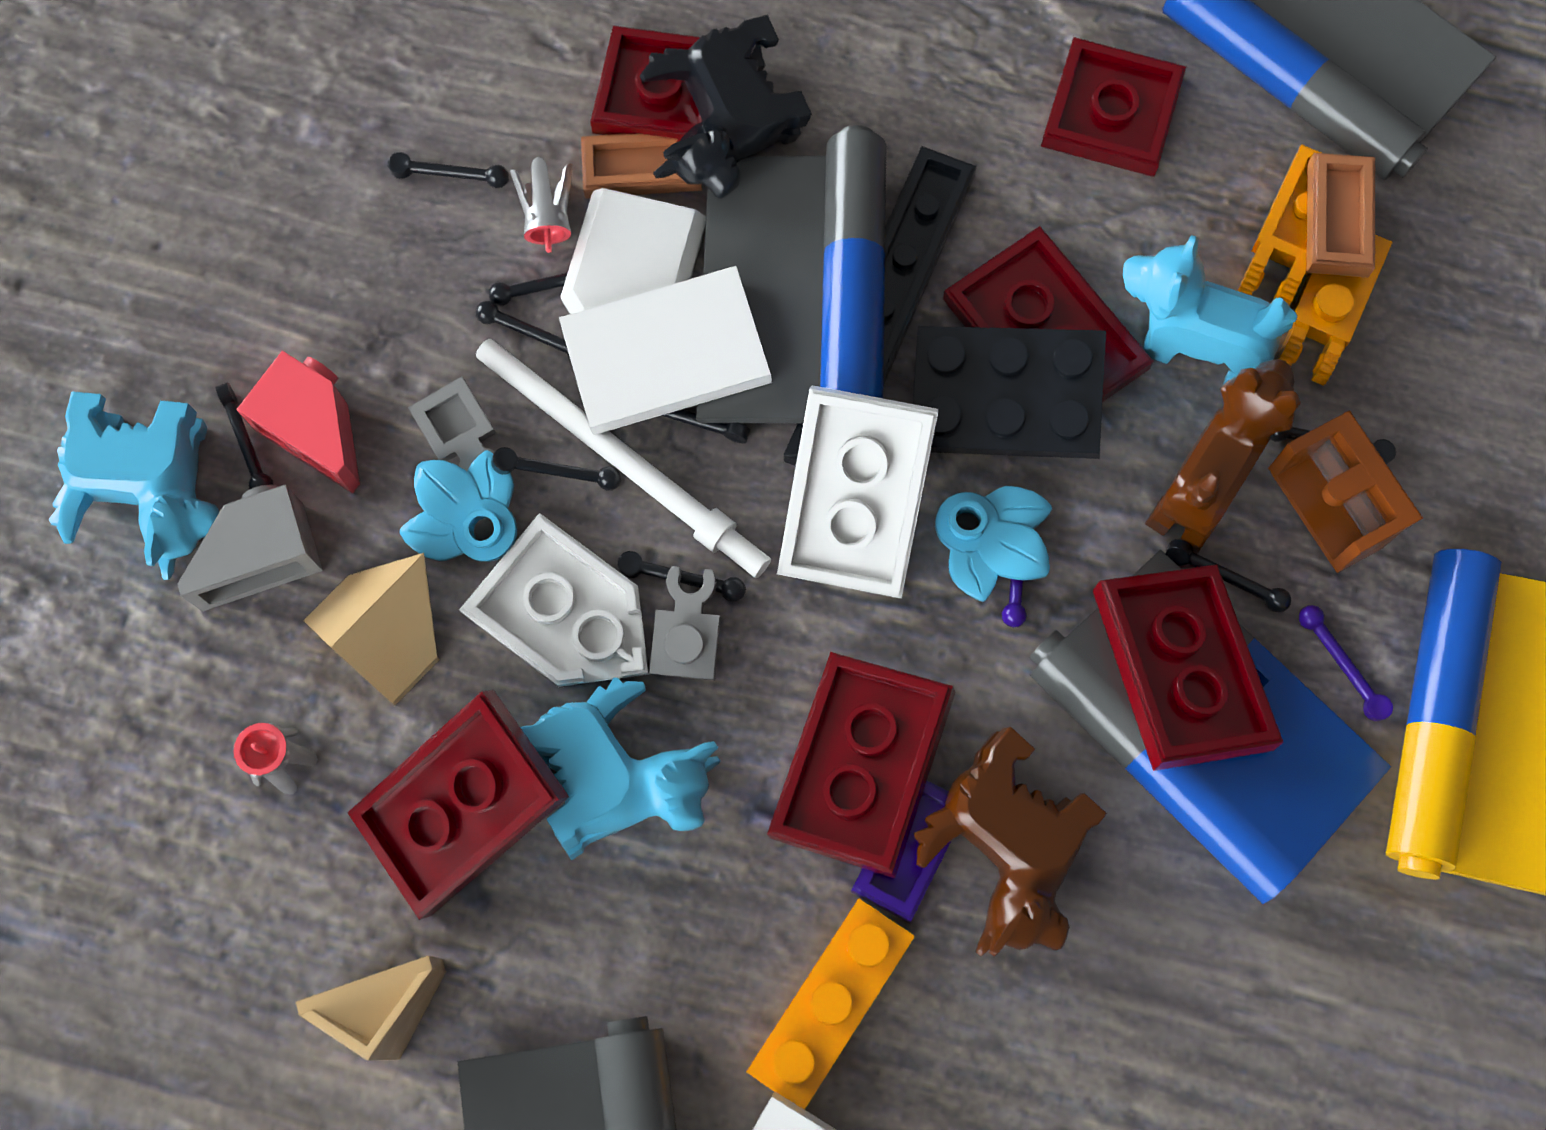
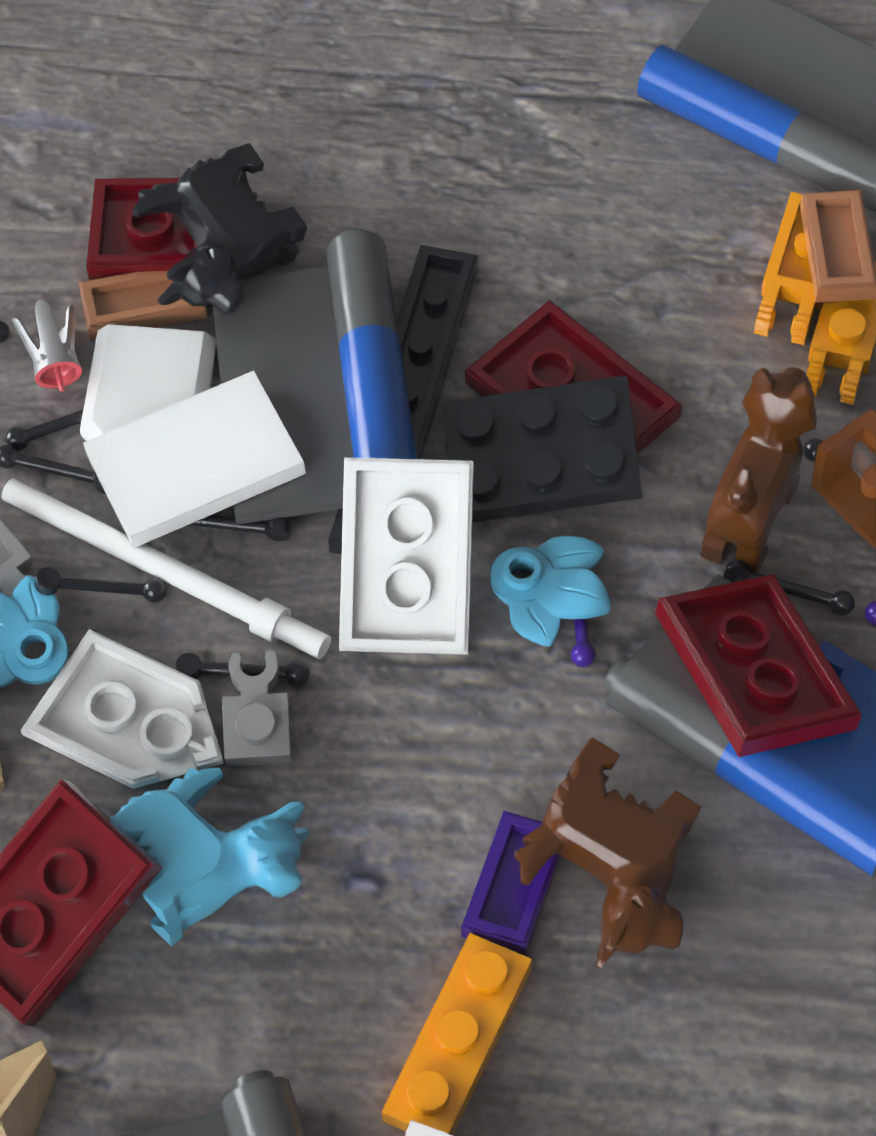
camera: 10 degrees left, 15 degrees down
(862, 764) = (452, 809): dark red tile -> none
(1113, 106) = (604, 186): dark red tile -> none
(1203, 316) = (709, 349): medium azure animal -> none

